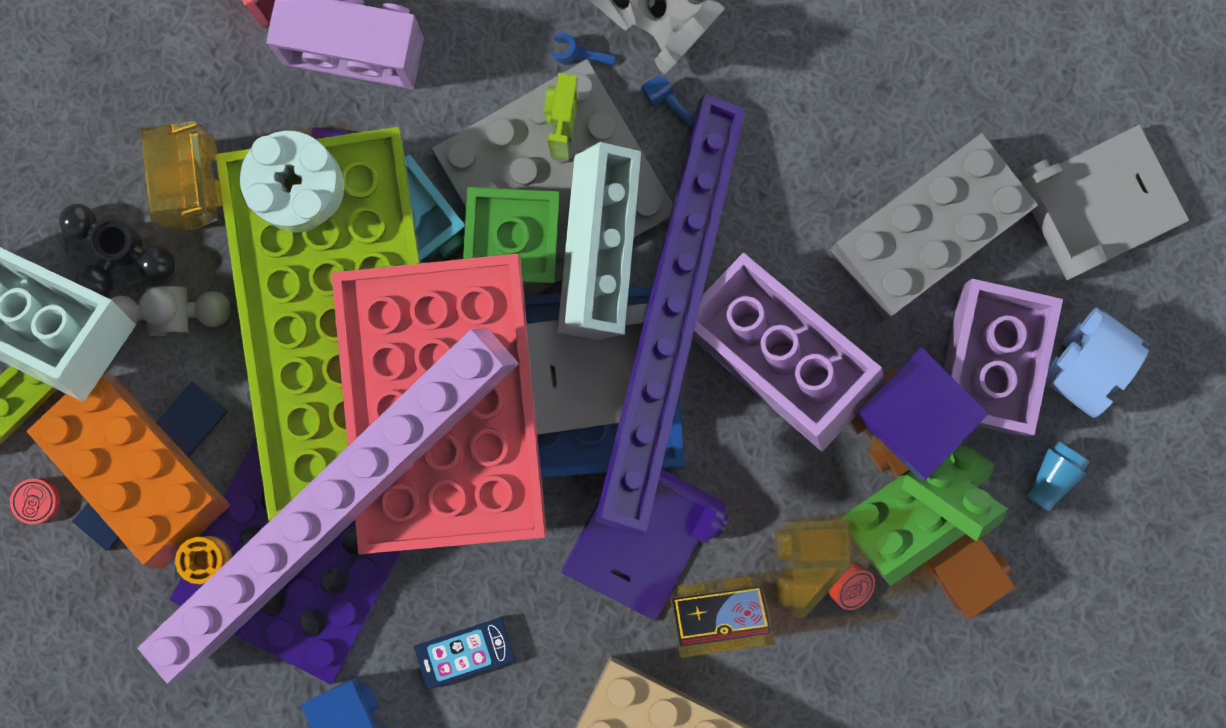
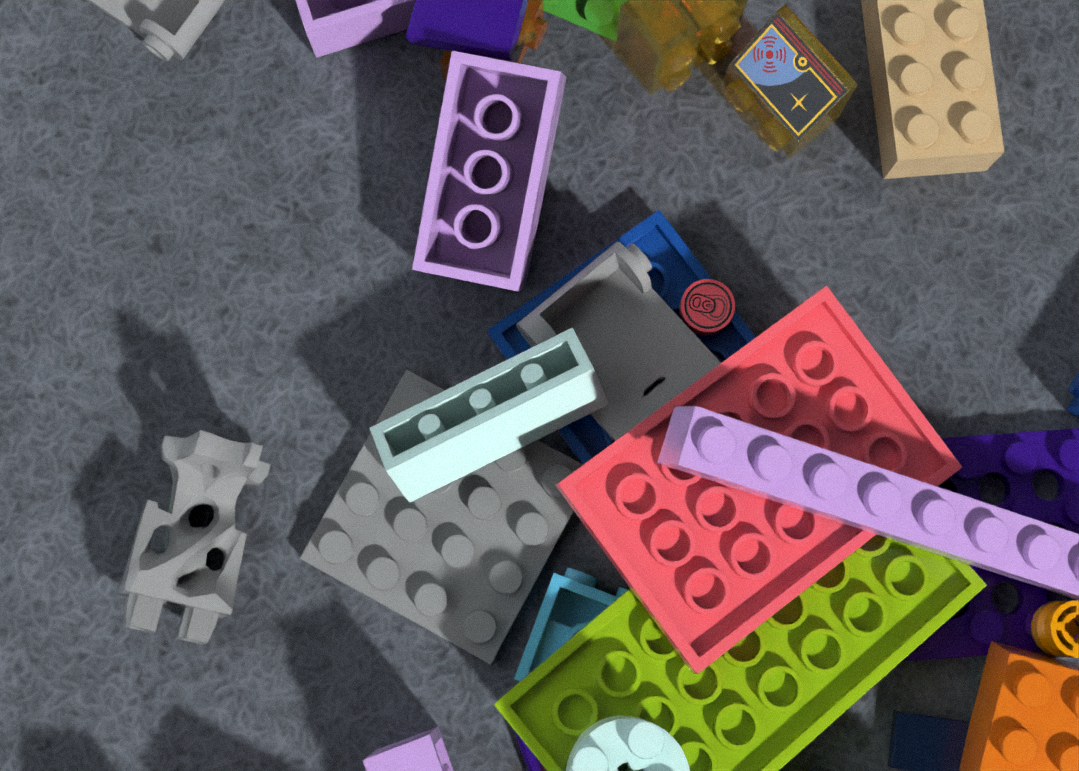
camera: 120 degrees left, 5 degrees down
(464, 653) = (975, 317): tile -> none
(514, 224) = (529, 519): bright green plate -> none
(560, 112) = (374, 536): lime plate -> none
(580, 53) = (295, 569): blue hand -> none
(588, 452) = (707, 307): none -> coral tile
(654, 559) = (750, 211): dark purple door -> none
(658, 90) = (287, 463): blue hand -> none
(670, 318) = (525, 294): dark purple plate -> none
(933, 226) = (273, 108): light grey brick -> none

